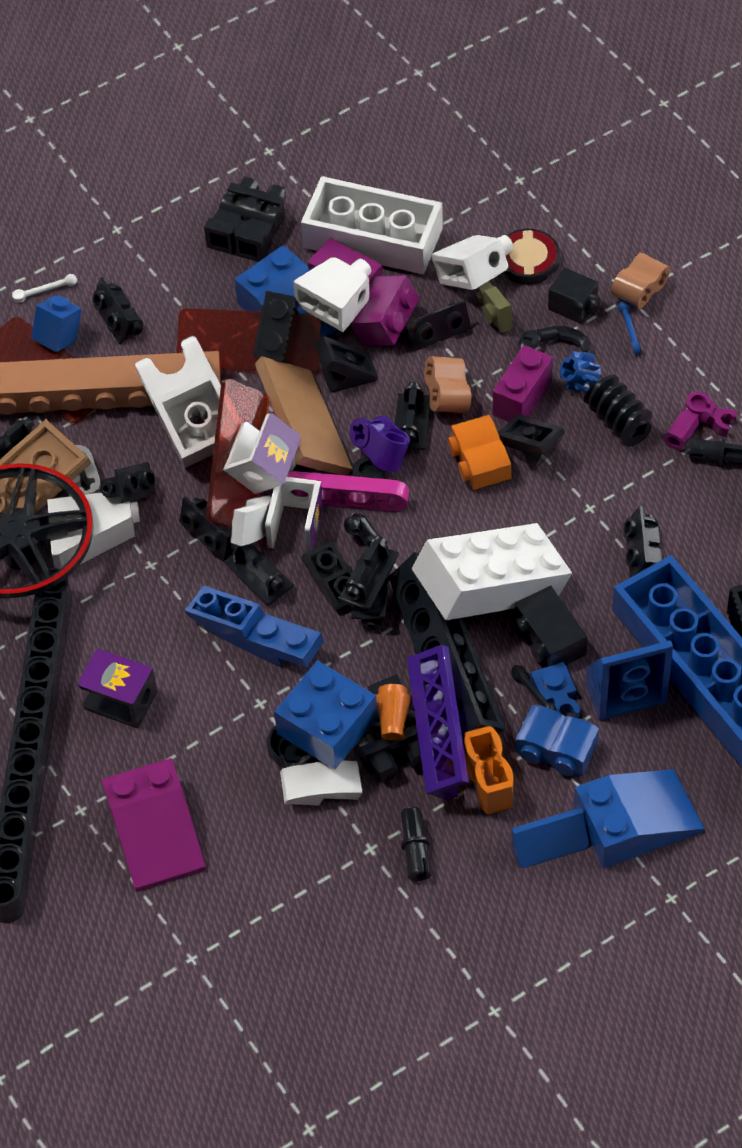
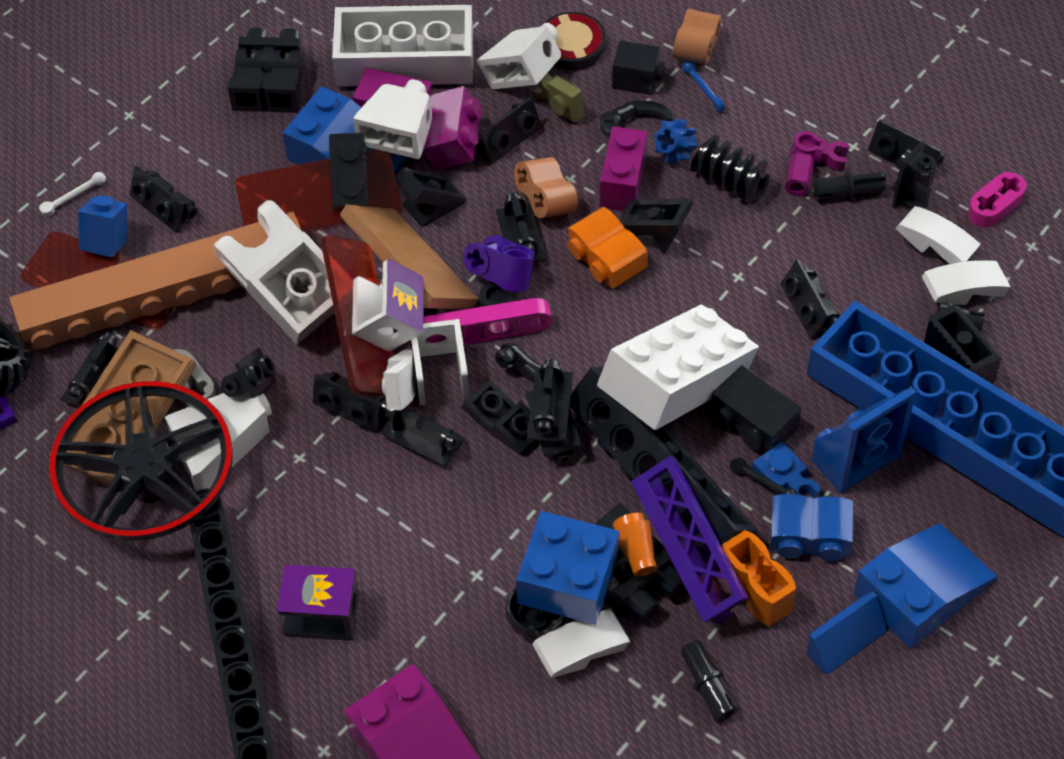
camera: 20 degrees left, 0 degrees up
(252, 630) = (441, 498): blue slope -> none

